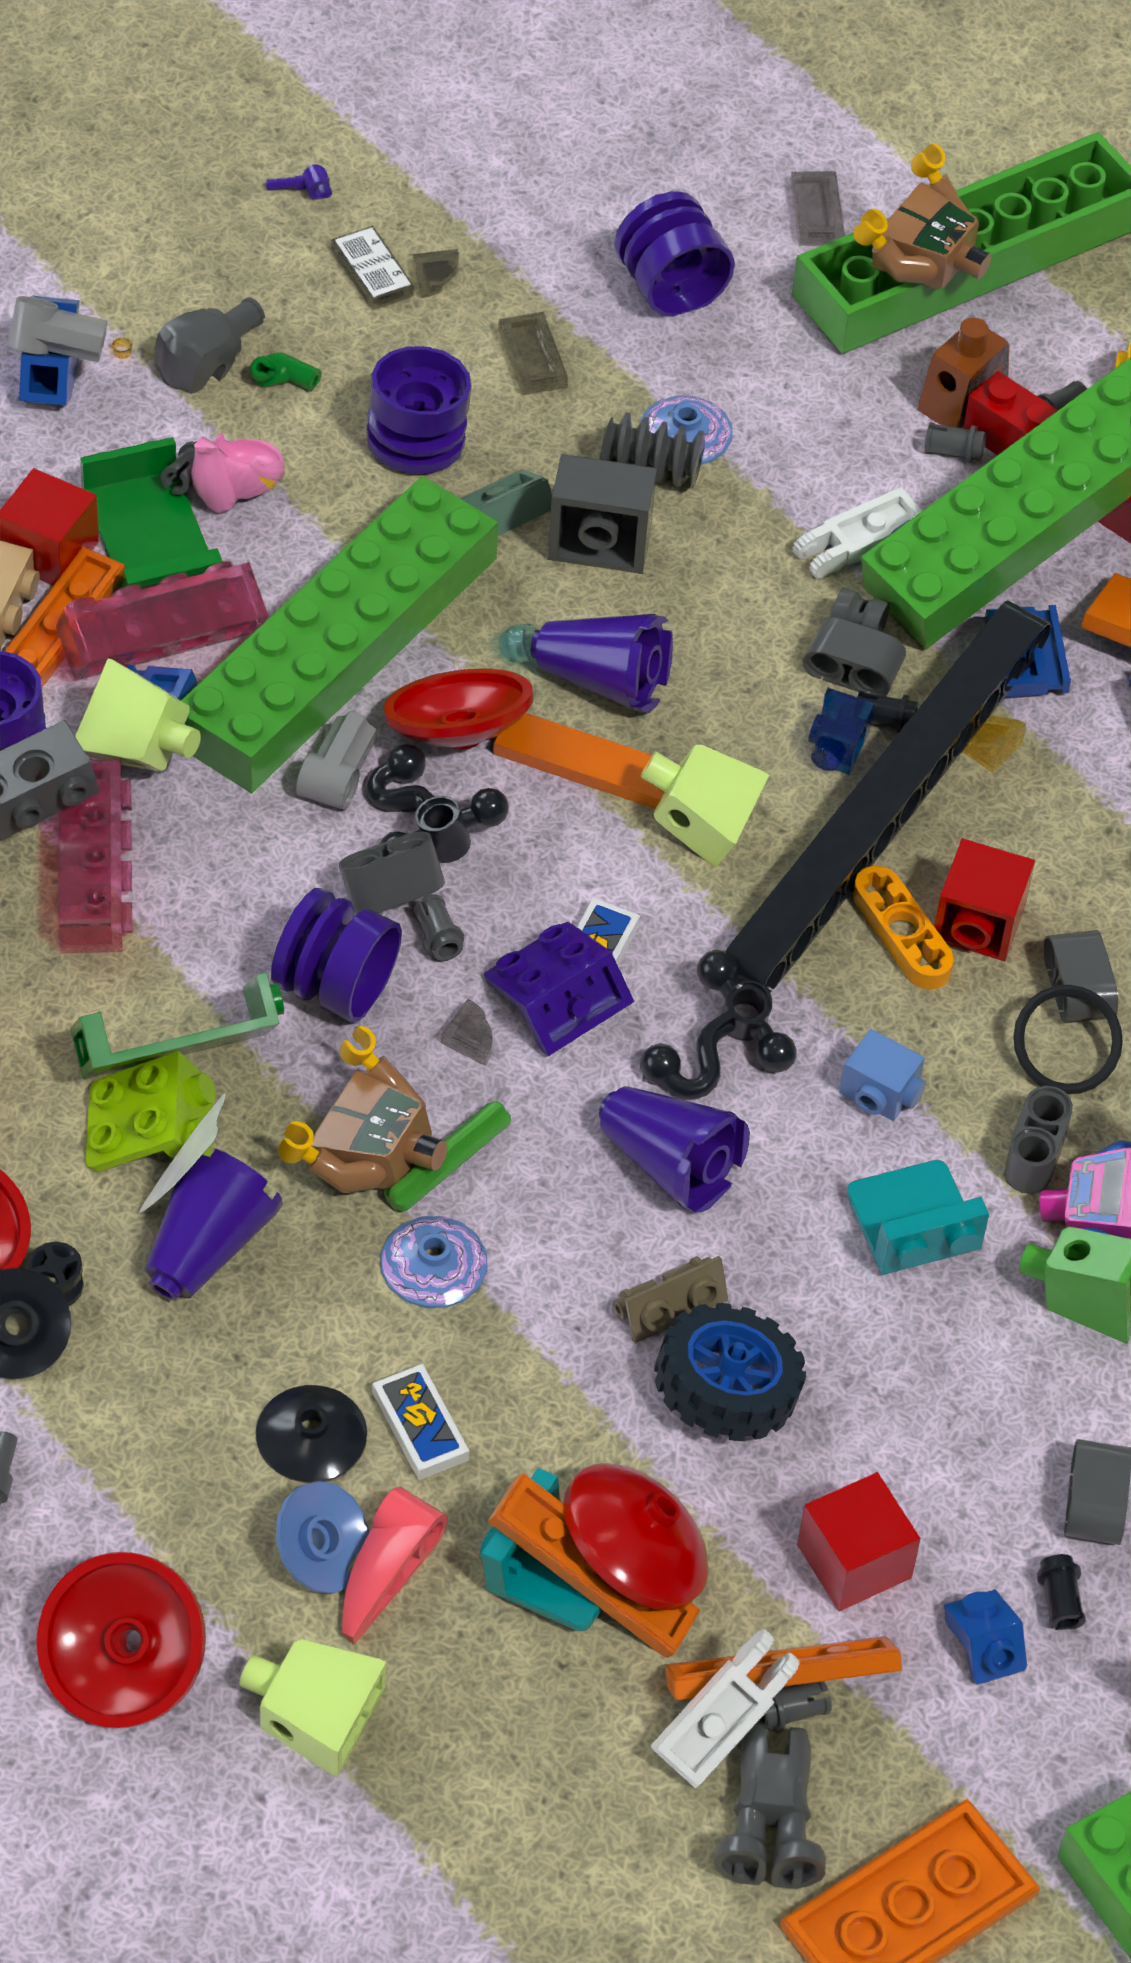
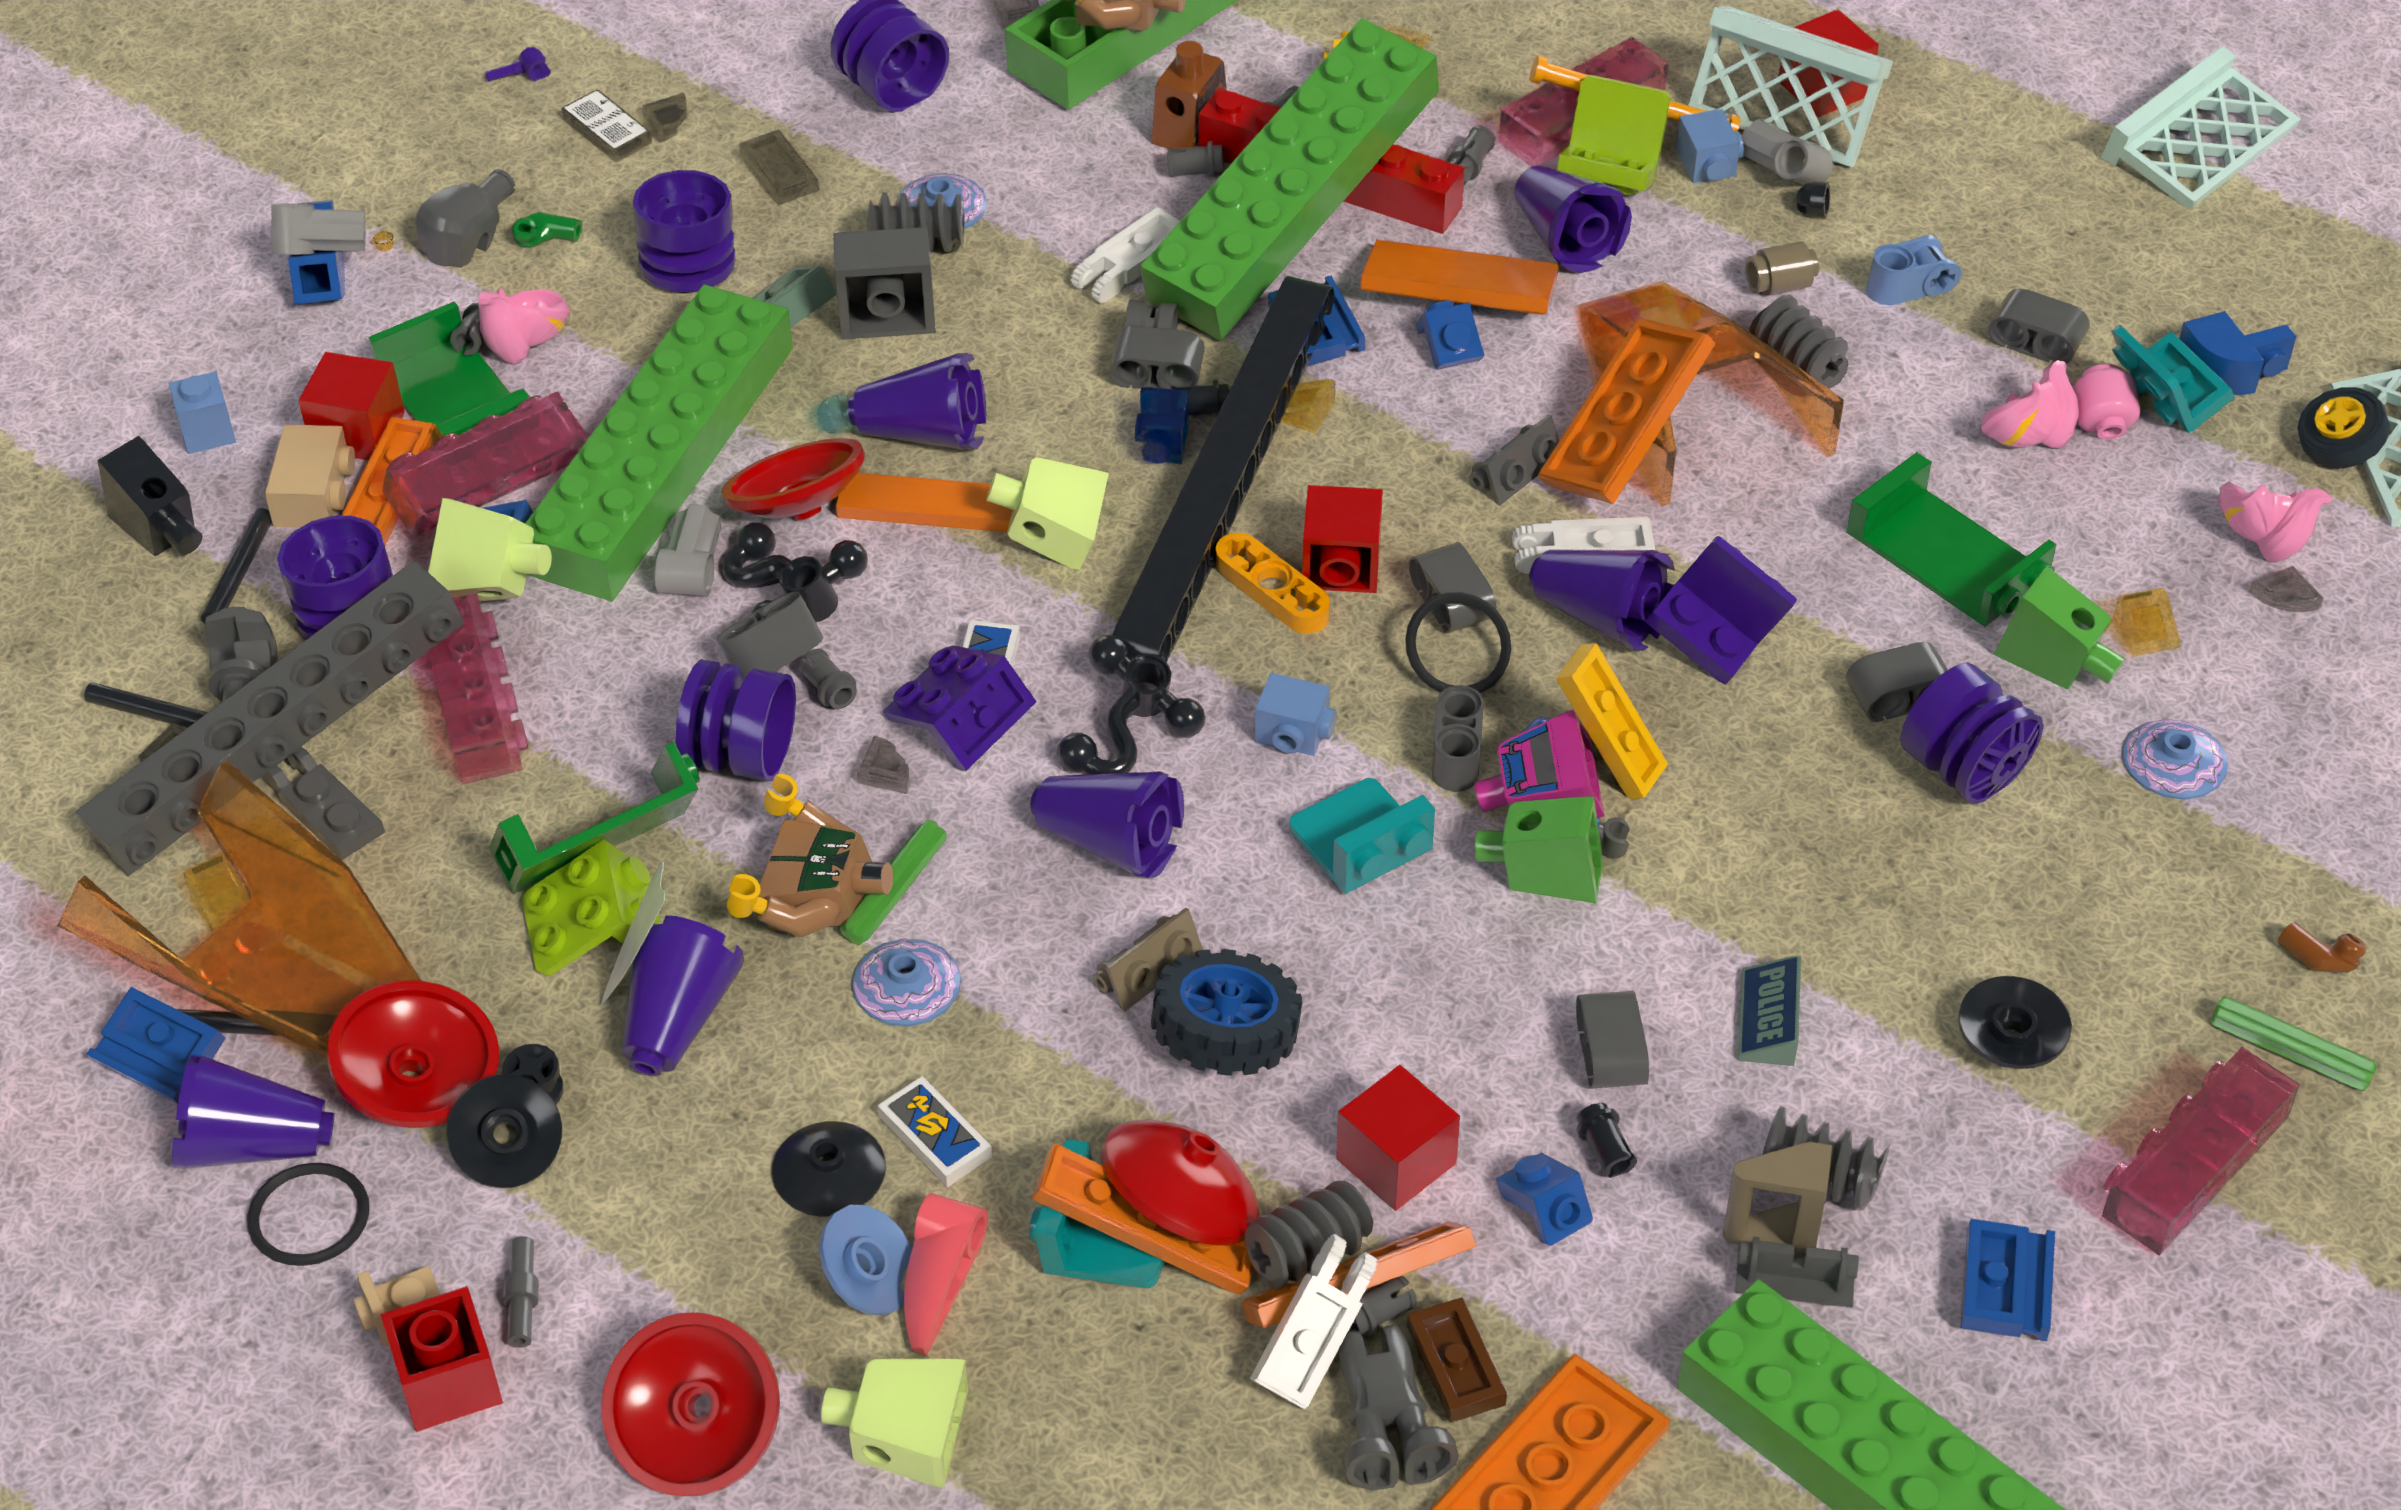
camera: 10 degrees left, 5 degrees down
(732, 1615) = (1292, 1235): none -> dark grey piece
(852, 1776) = (1456, 1359): none -> reddish brown plate

